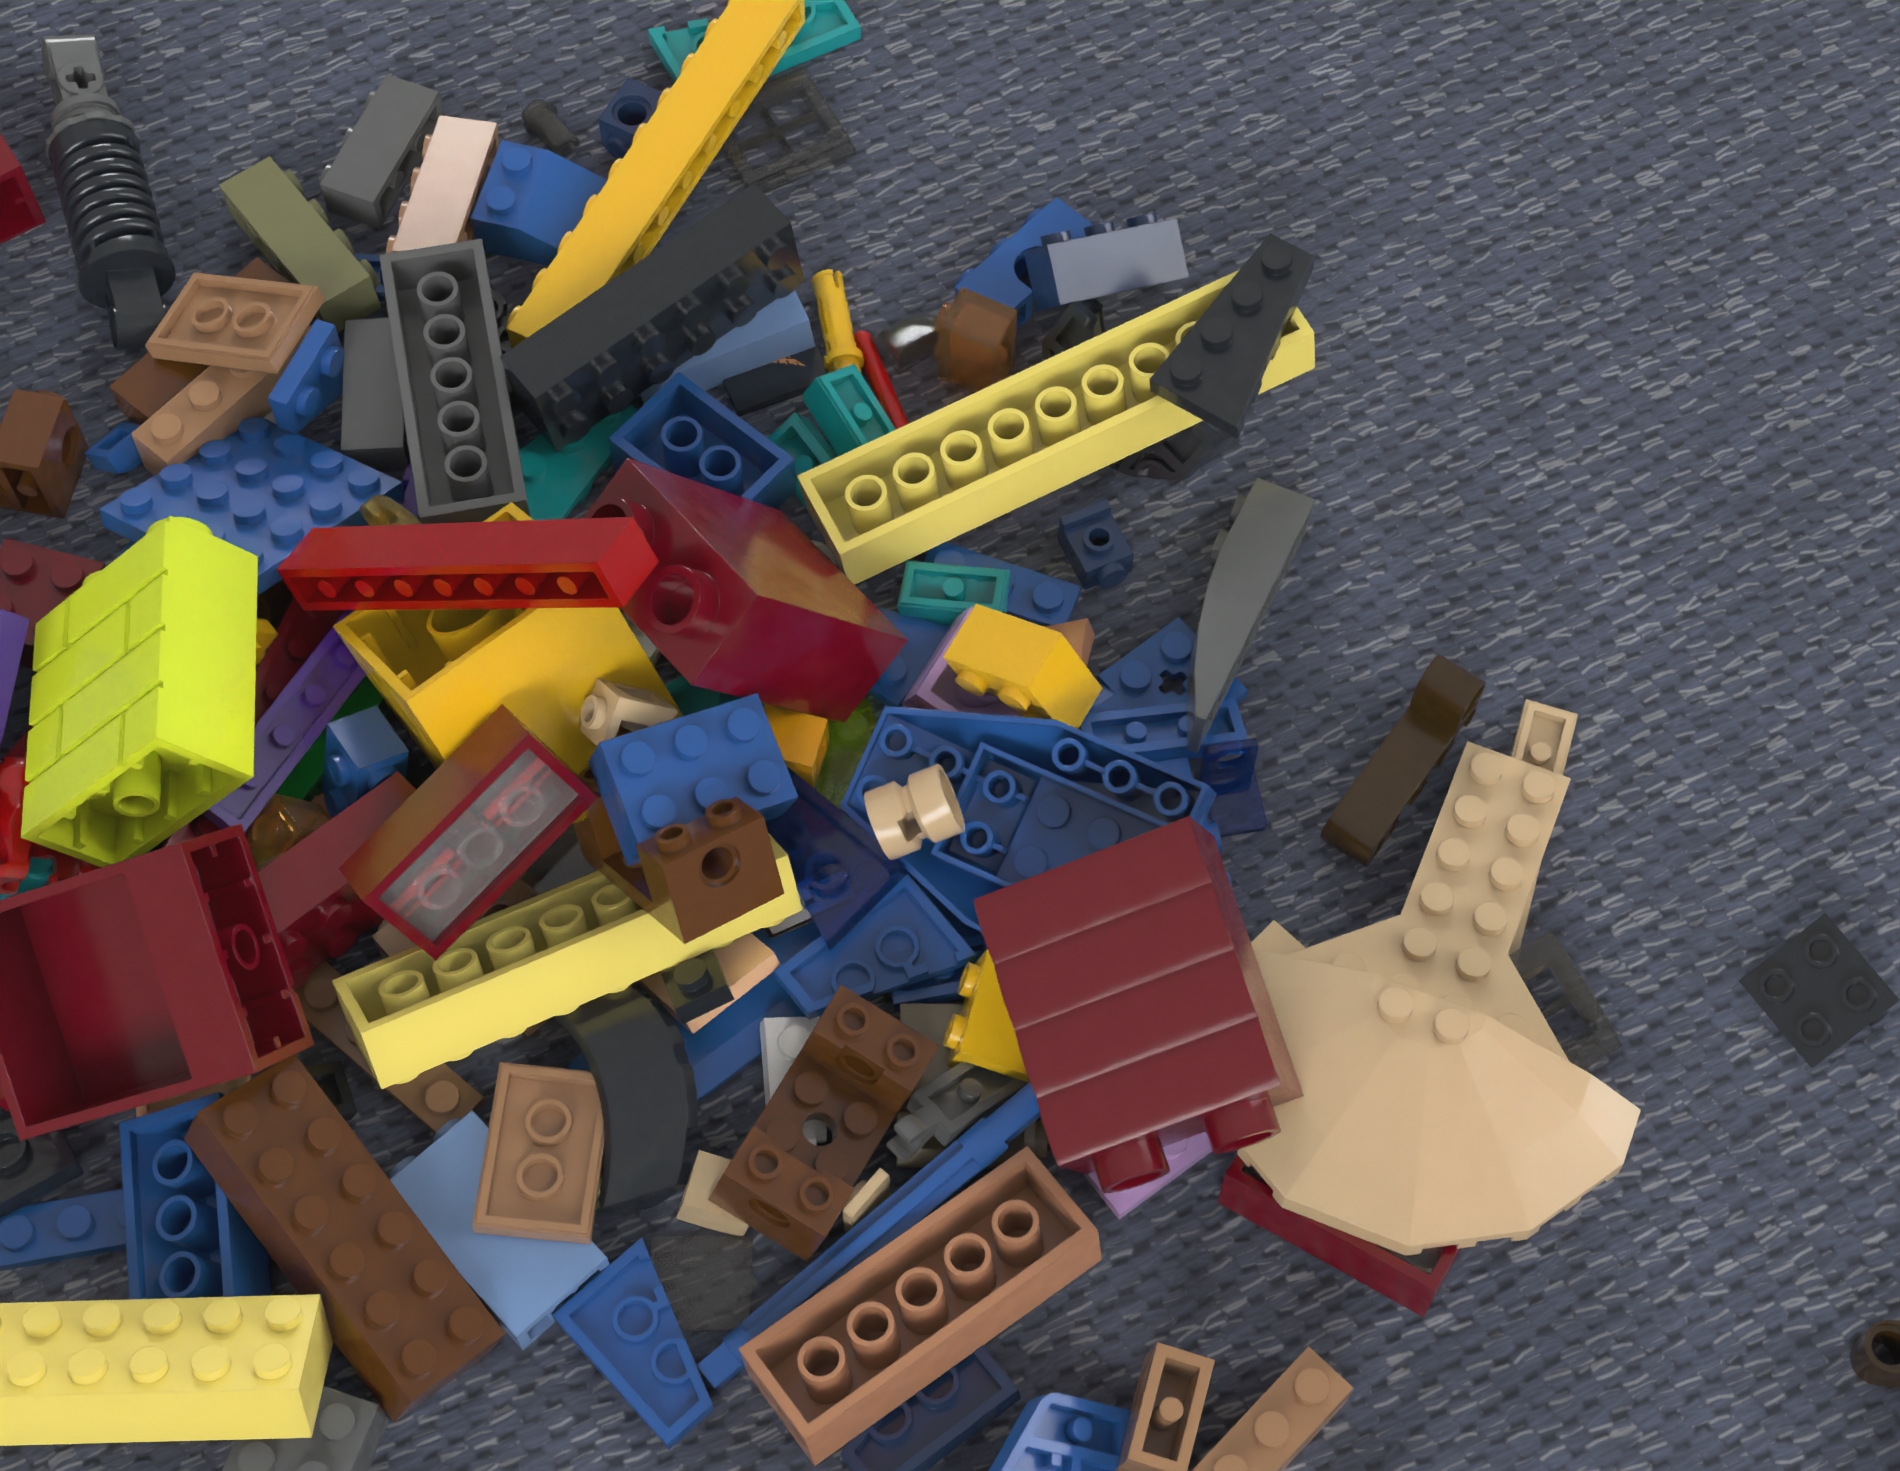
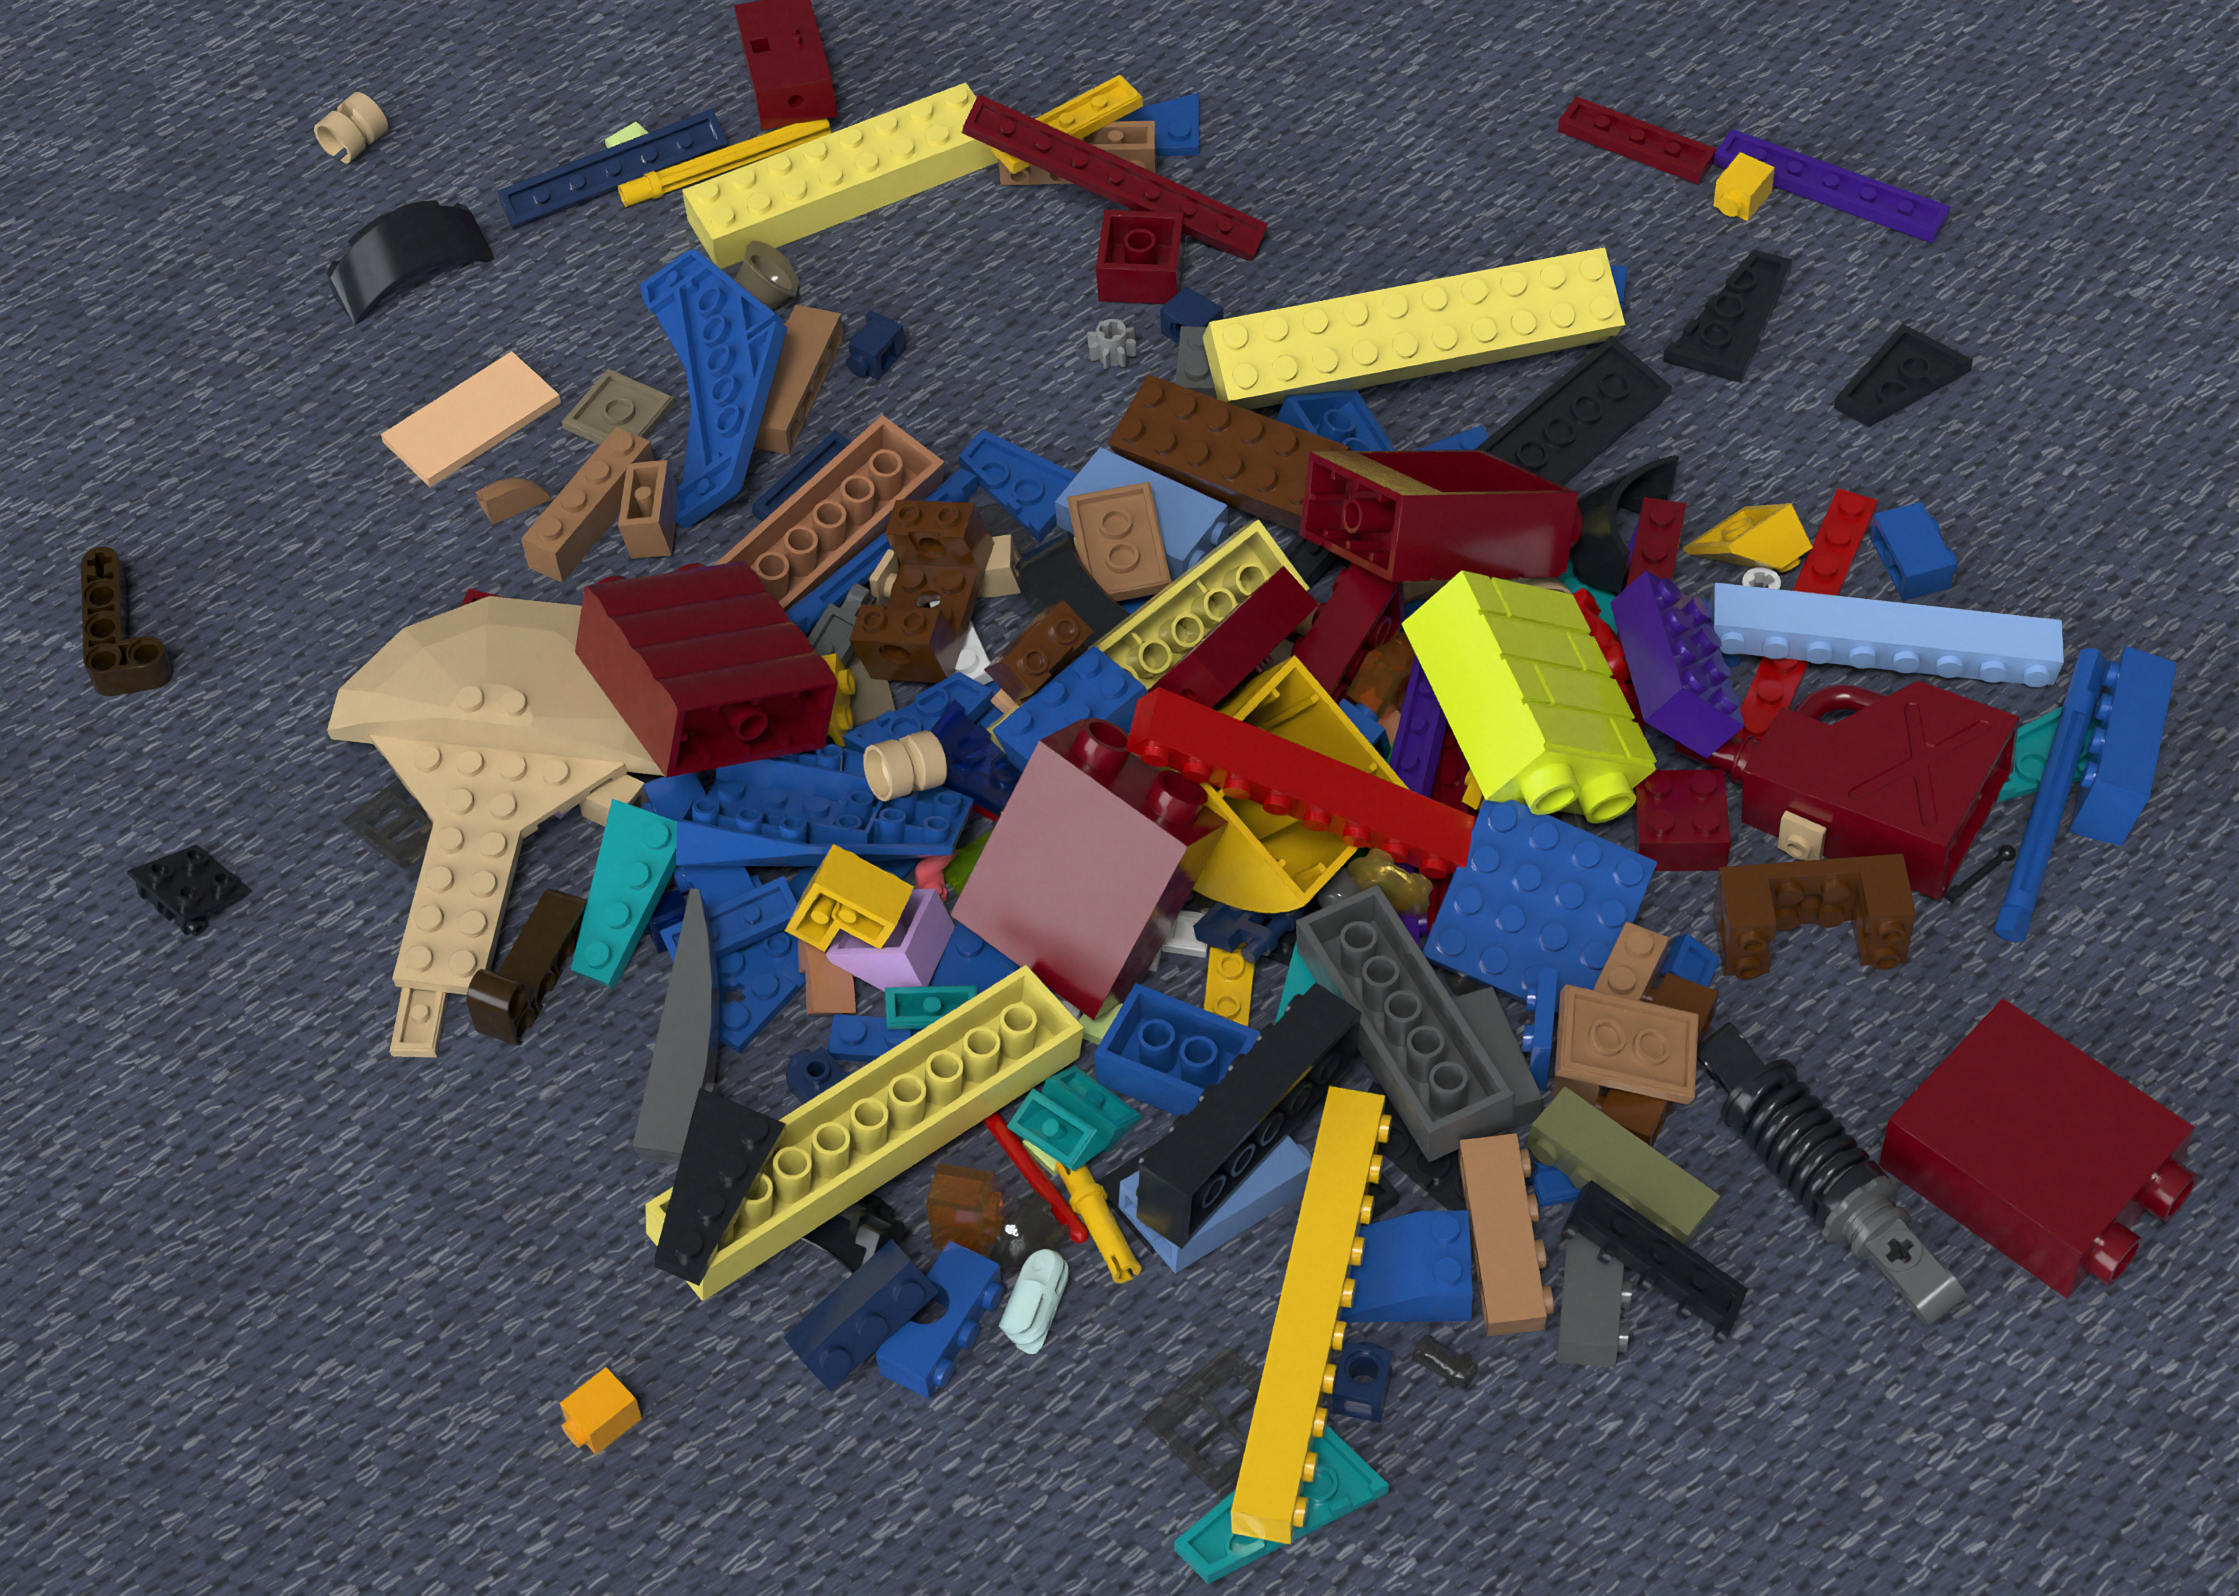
camera: 170 degrees right, 10 degrees down
(315, 137) = (1656, 1258): none -> black hinge
(927, 269) = (1035, 1300): none -> light aqua arm
(1279, 823) = (626, 887): none -> teal wing
(1383, 262) = (599, 1412): none -> light orange brick

